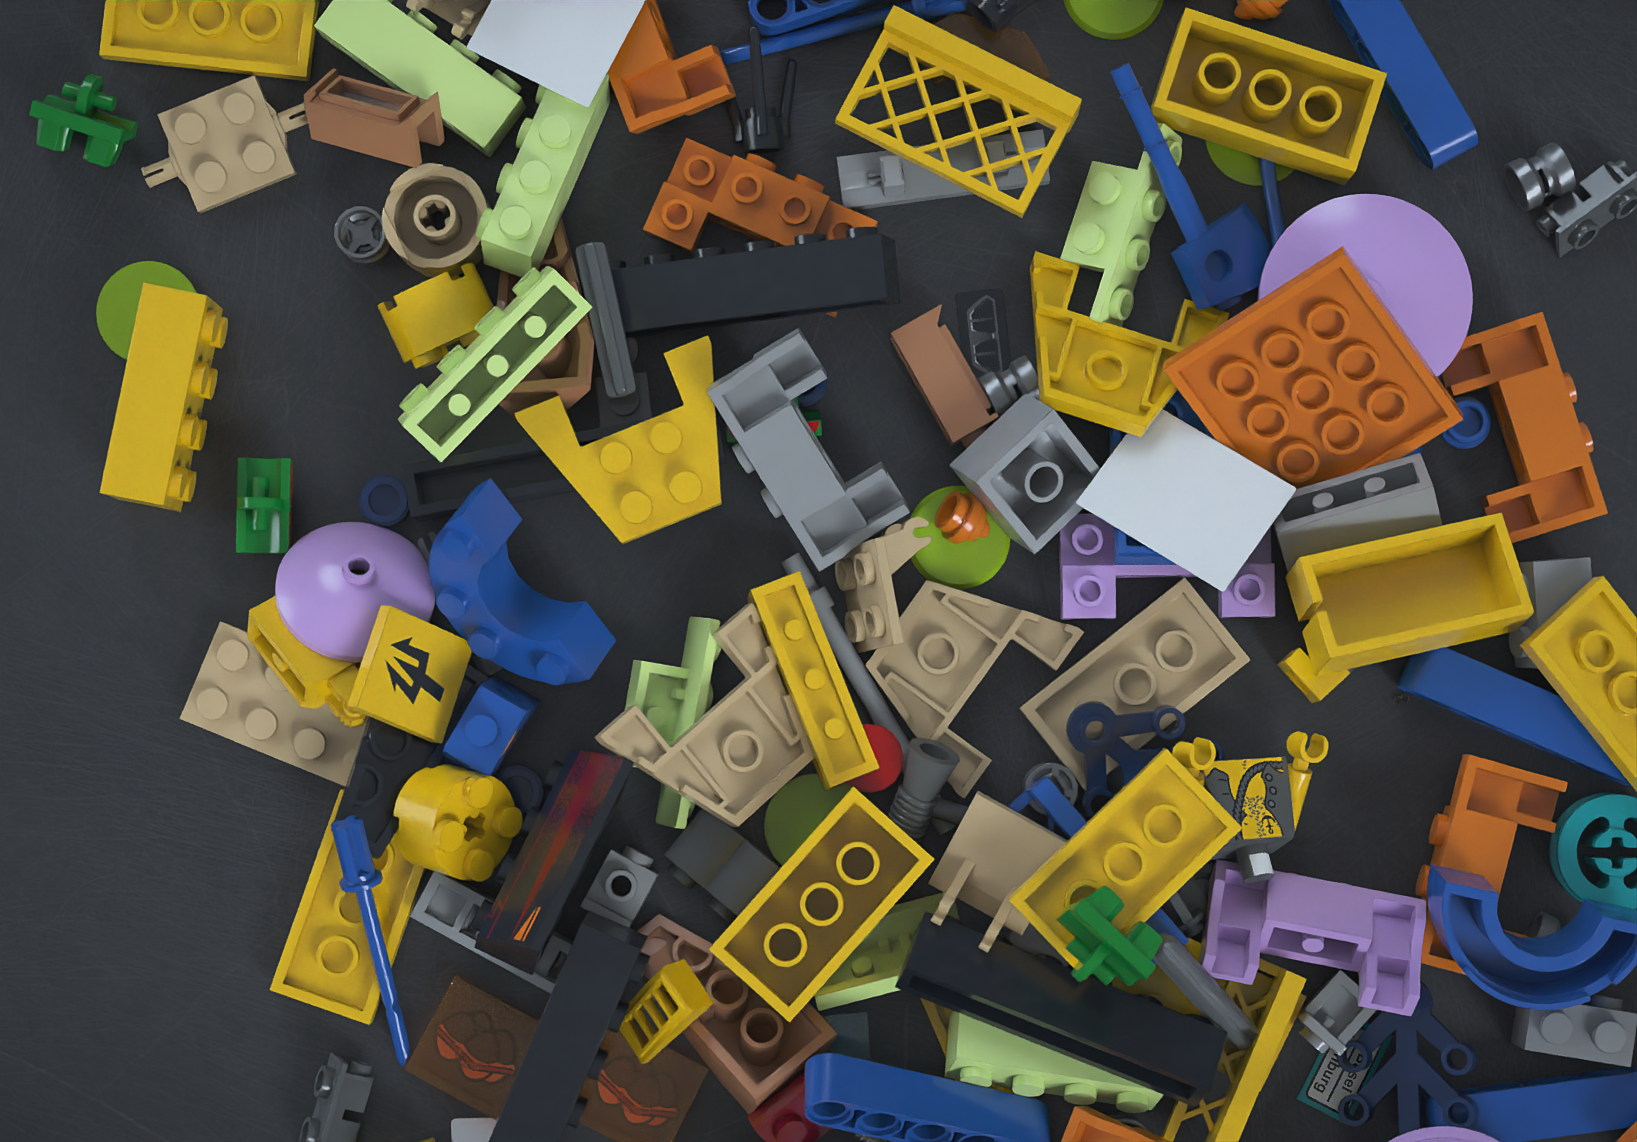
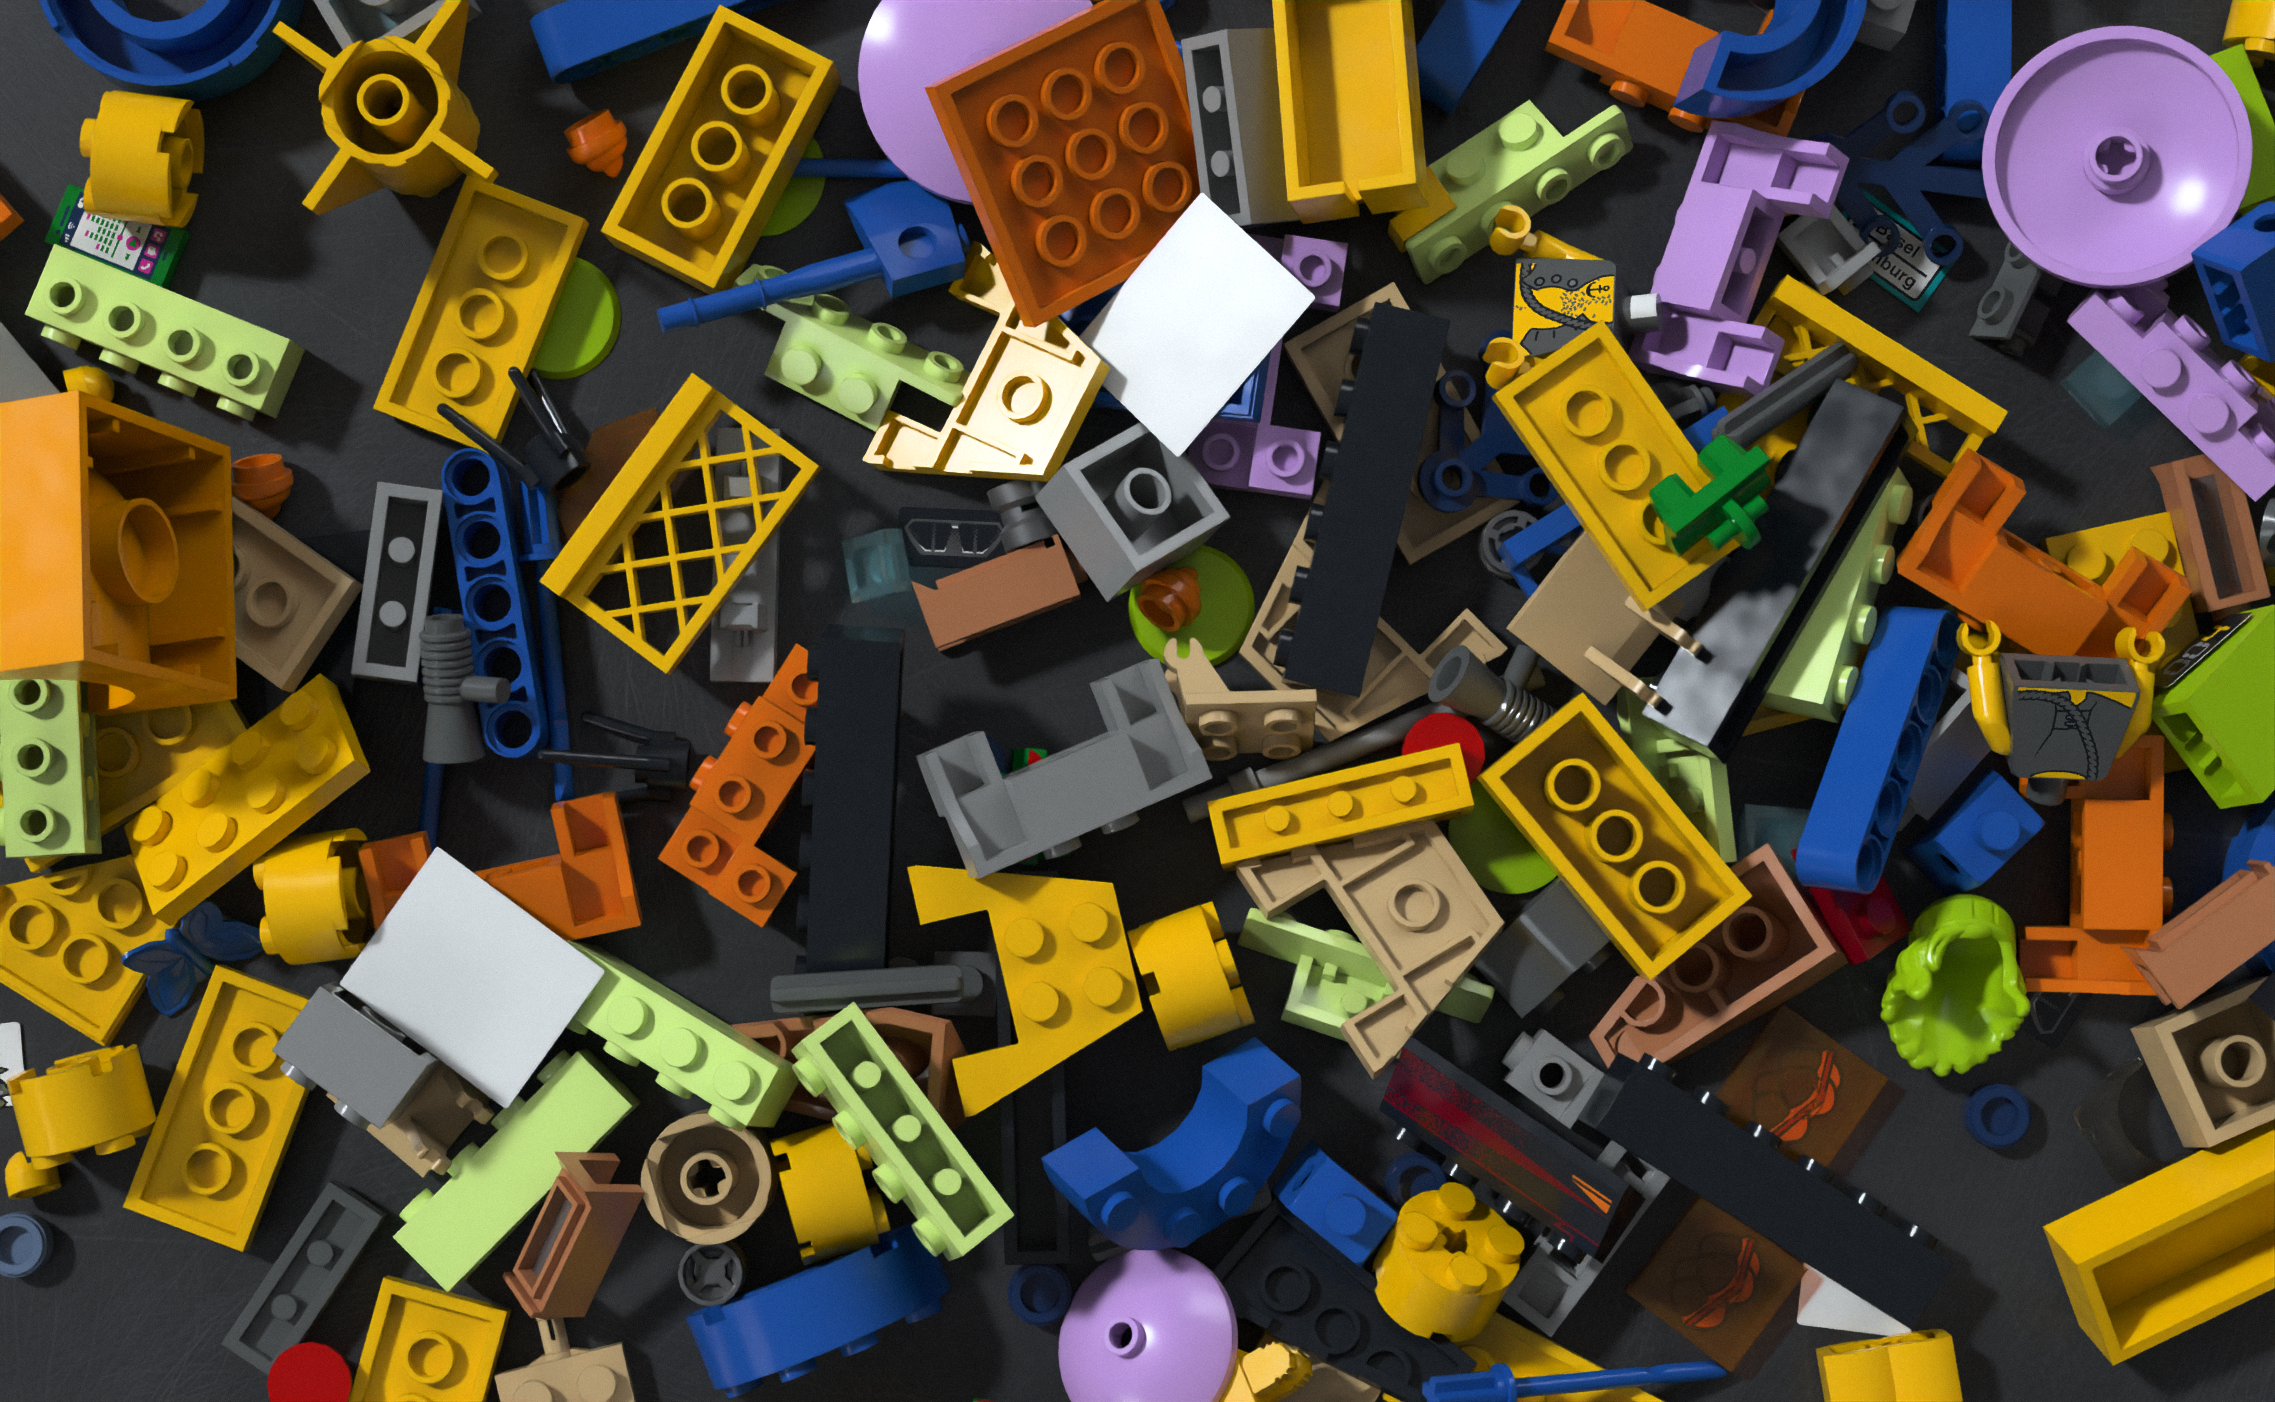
camera: 80 degrees left, 0 degrees up
(343, 323) = (817, 1312): none -> blue brick
(410, 674) = (1261, 1292): yellow tile -> none
(656, 579) = (1190, 976): none -> yellow brick
(686, 993) = (1694, 1016): yellow slope -> none
(950, 276) = (876, 565): none -> clear light blue plate
(1064, 660) = (1364, 501): none -> black brick
(1363, 744) = (1511, 163): none -> yellowish green bracket

